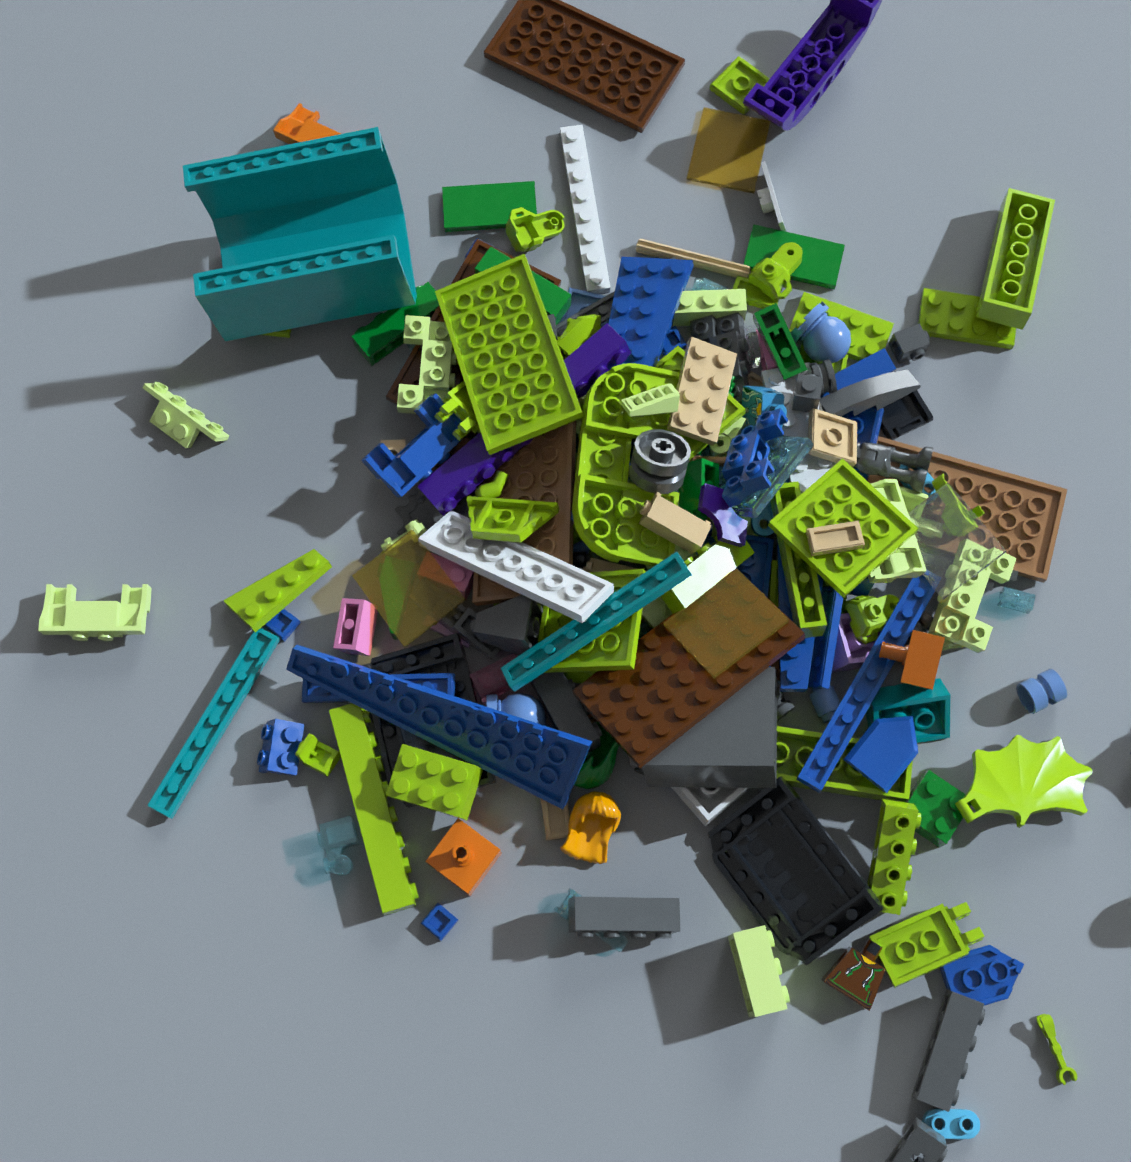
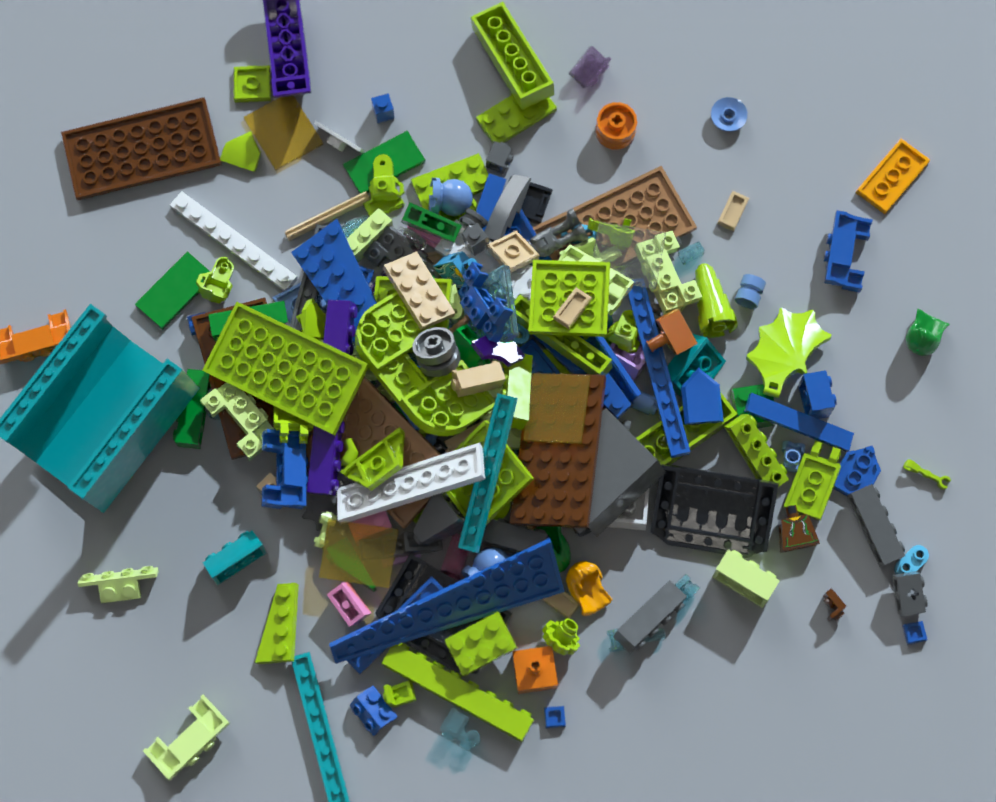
camera: 45 degrees left, 0 degrees up
(283, 624) = (303, 643): blue tile -> none
(299, 488) = (234, 557): none -> teal slope
(519, 850) = (562, 636): none -> lime plant
(654, 401) = (401, 321): yellowish green slope -> none
(671, 136) = (242, 152): none -> lime slope
(691, 928) = (690, 590): none -> clear light blue wheel
(827, 1083) = (833, 601): none -> reddish brown bracket
(840, 204) = (382, 108): none -> blue brick
(931, 893) = (792, 455): none -> medium blue plate
(966, 868) = (799, 422): none -> blue tile
(988, 672) = (713, 308): none -> lime cone
(1012, 858) = (817, 394): none -> blue brick
(1057, 412) = (616, 125): none -> orange wheel
(1083, 334) = (589, 67): none -> clear purple bracket
(1100, 597) = (733, 211): none -> tan tile

